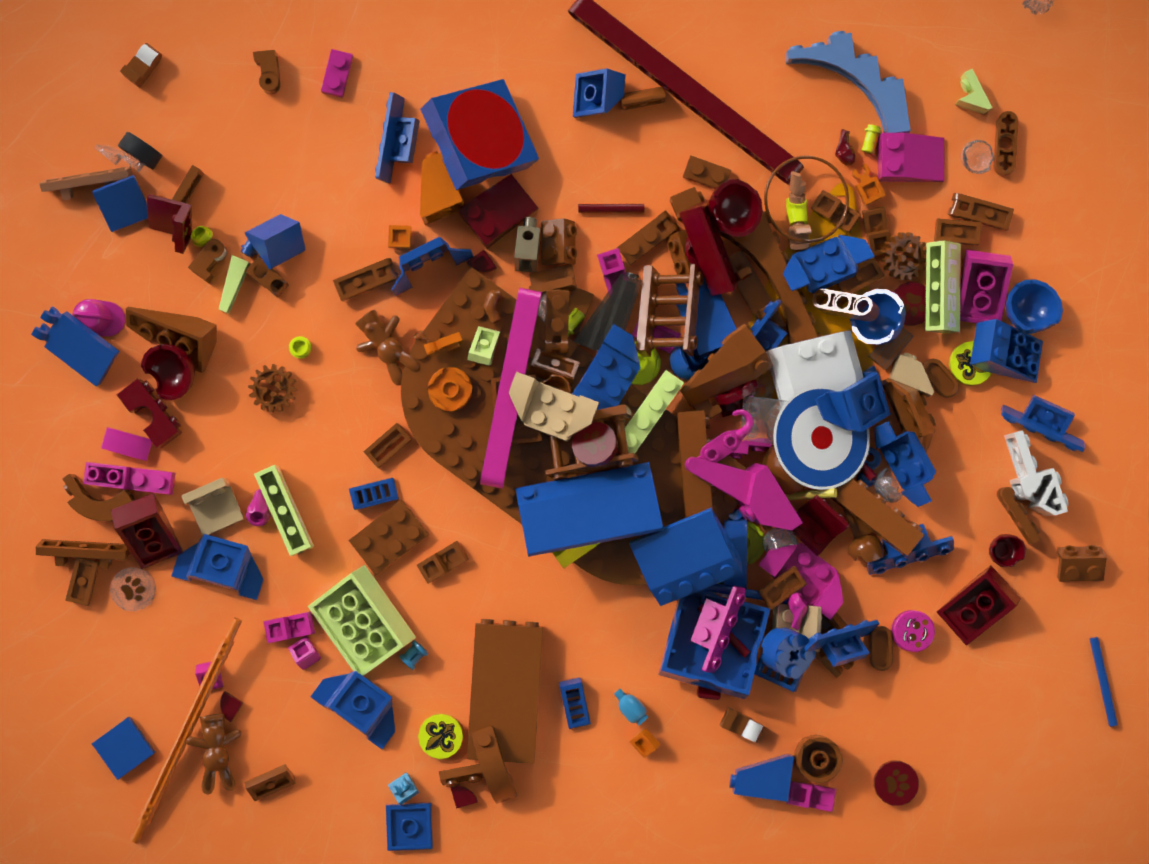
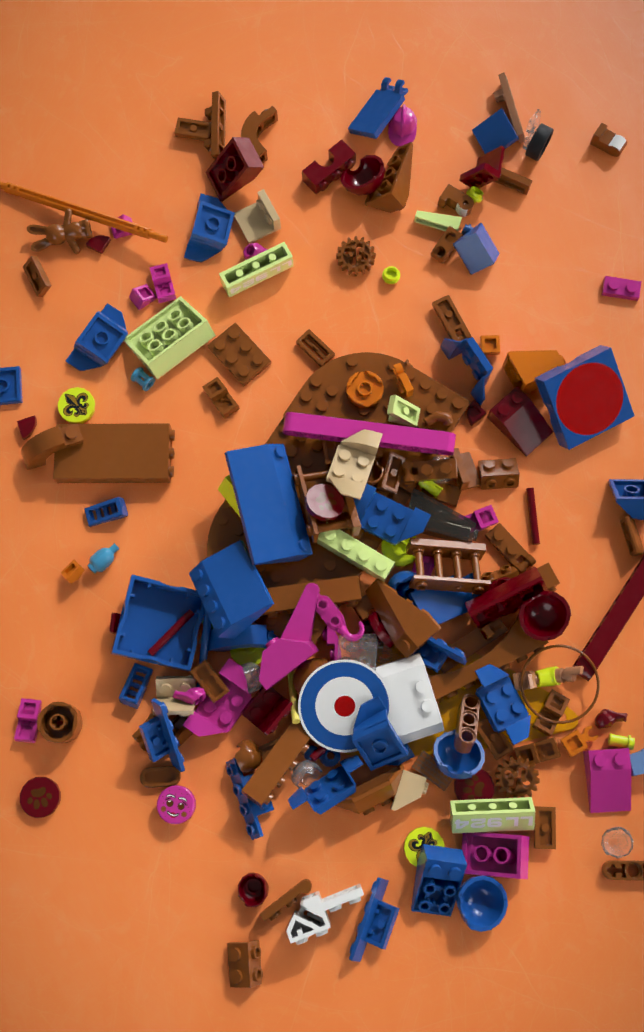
camera: 90 degrees right, 10 degrees down
(123, 748) = (64, 169): blue tile -> none
(126, 444) = (303, 152): dark pink slope -> none
(129, 478) = (276, 155): dark pink slope -> none
(133, 589) = (189, 166): clear tile -> none
(270, 73) = (618, 235): dark orange leg -> none
(355, 499) = (269, 325): blue slope -> none
(388, 348) = (396, 341): dark orange animal -> none
(397, 138) = (572, 336): blue bracket -> none
(403, 788) = (33, 378): dark azure tile -> none
(454, 776) = (42, 416): dark orange plate -> none
(527, 246) = (492, 445): dark tan torso -> none
(706, 172) = (574, 593): dark orange plate -> none
(715, 626) = (172, 622): dark pink bracket -> none
(742, 725) = (89, 654): dark orange leg -> none
(764, 779) = (42, 676): blue slope -> none
(786, 653) = (150, 683): blue brick -> none
(941, 378) = (408, 818): dark orange tile -> none
(979, 605) = (202, 866): dark red slope -> none
(981, 211) = (566, 849): dark orange plate -> none
(1103, 681) = (138, 991): blue bar -> none

